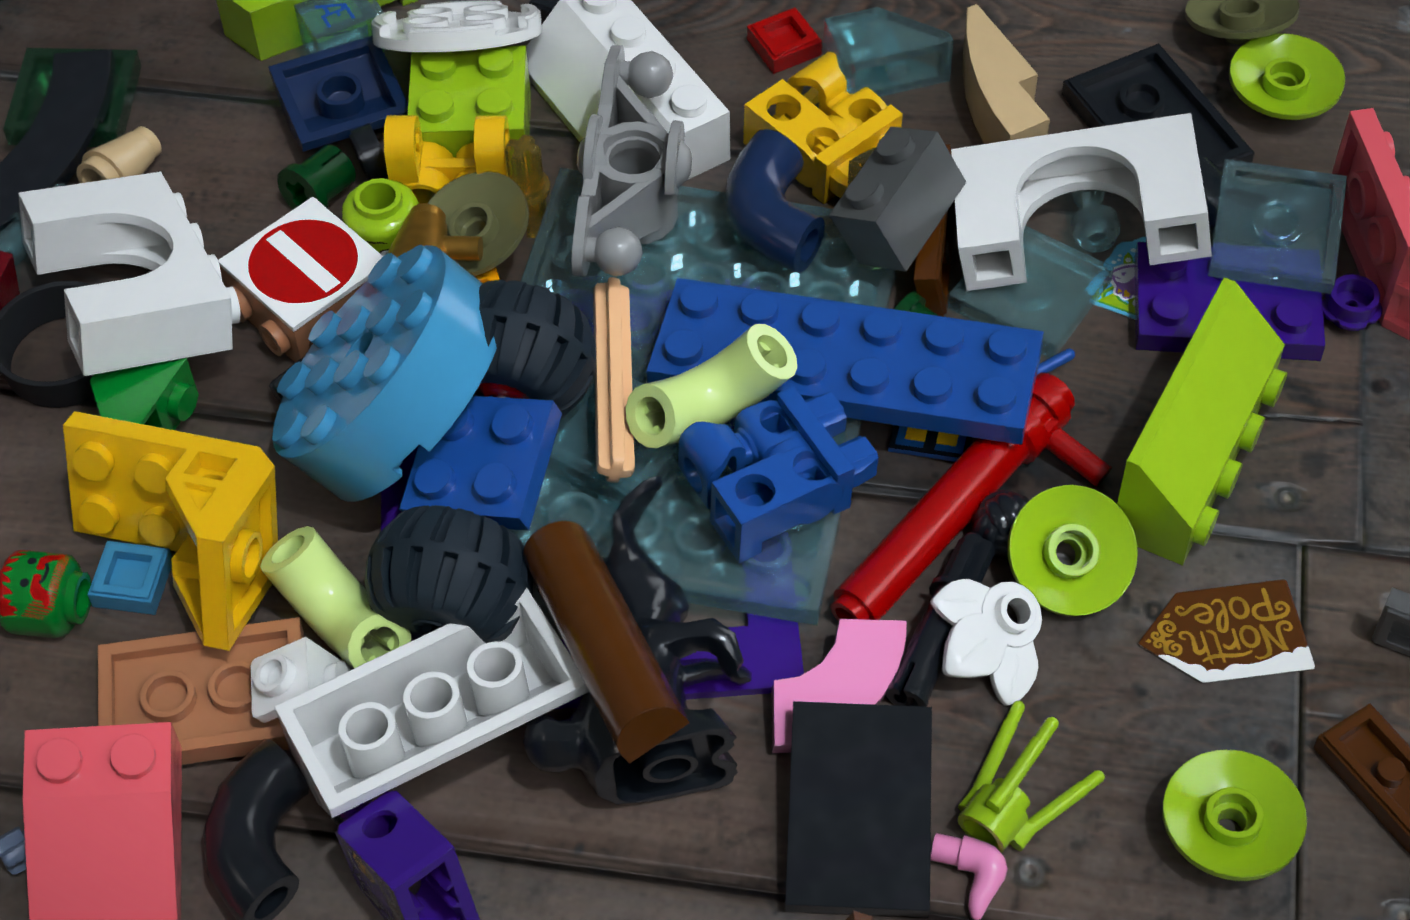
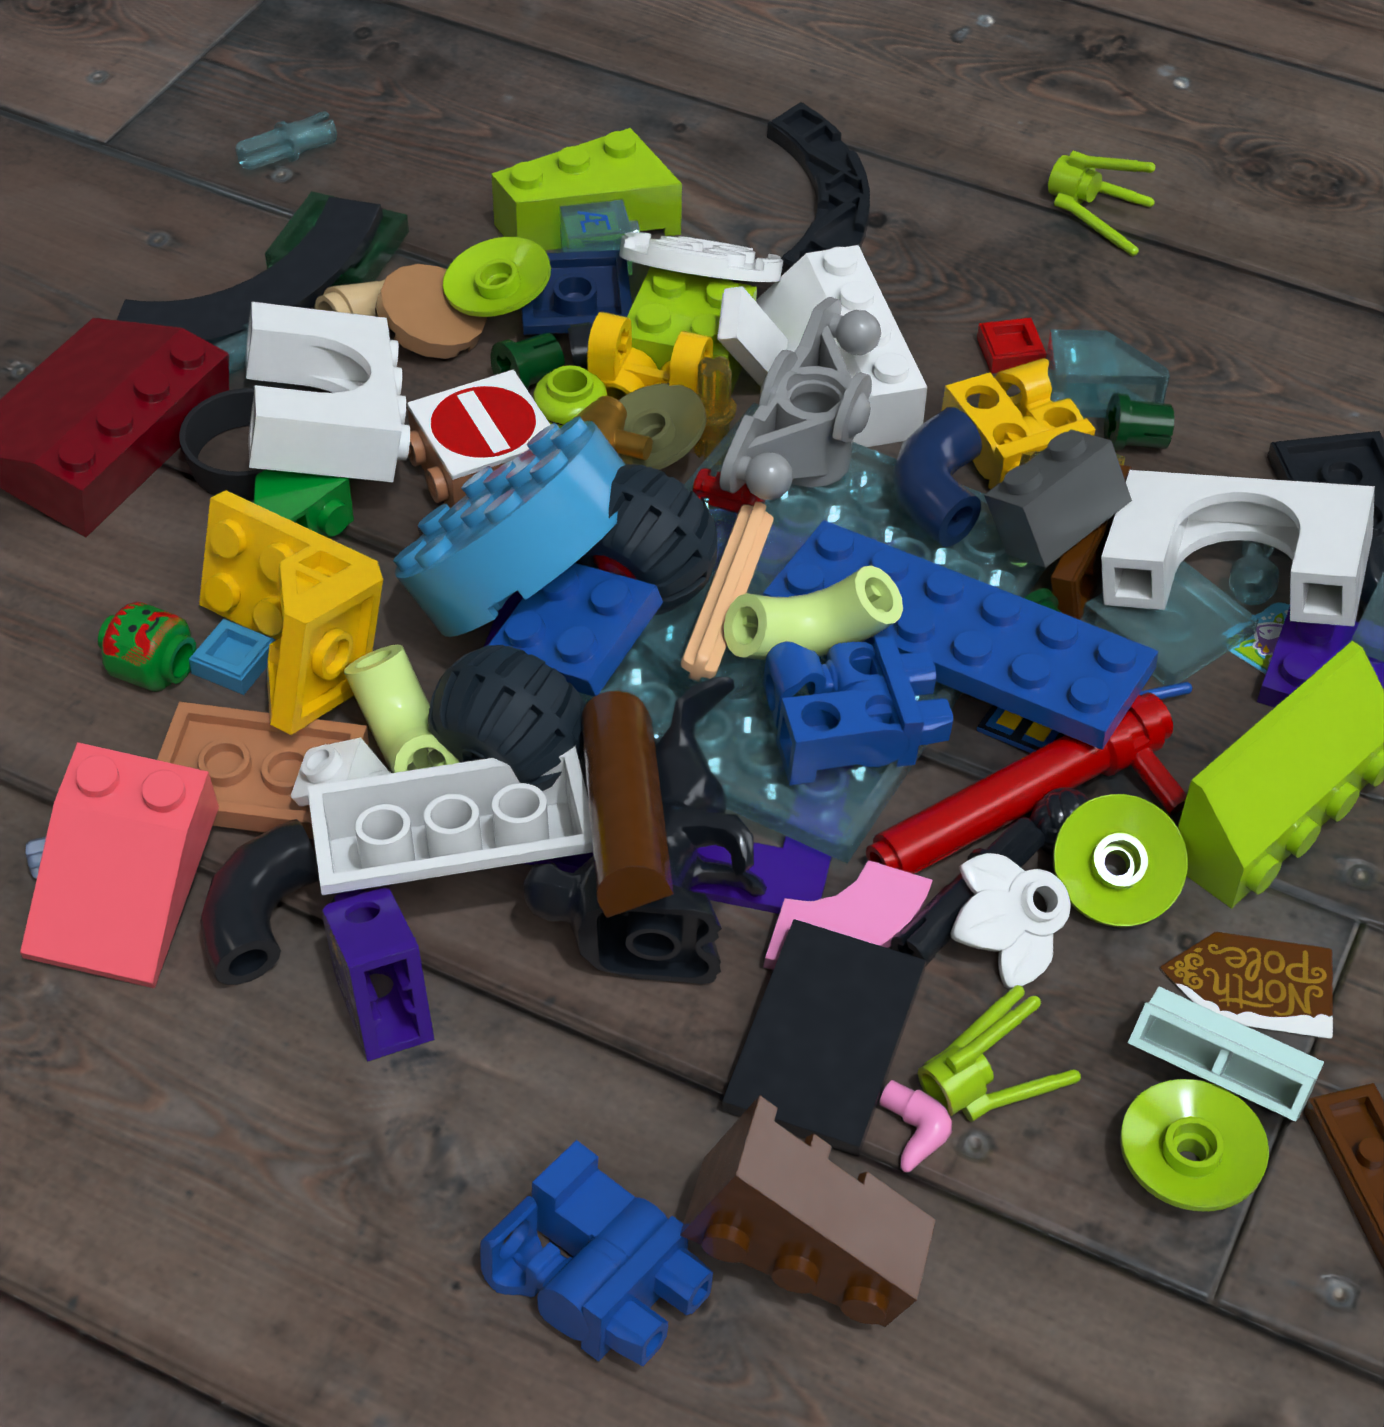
camera: 15 degrees right, 5 degrees down
(200, 149) = (422, 315): none -> medium nougat tile
(257, 97) = (496, 276): none -> lime dish
(540, 102) = (749, 333): none -> white tile
(560, 273) = (709, 487): none -> red piece
(934, 94) = (1138, 423): none -> dark green bush
(999, 83) = (1204, 424): tan slope -> none
(1233, 715) = (1226, 1053): none -> light aqua piece

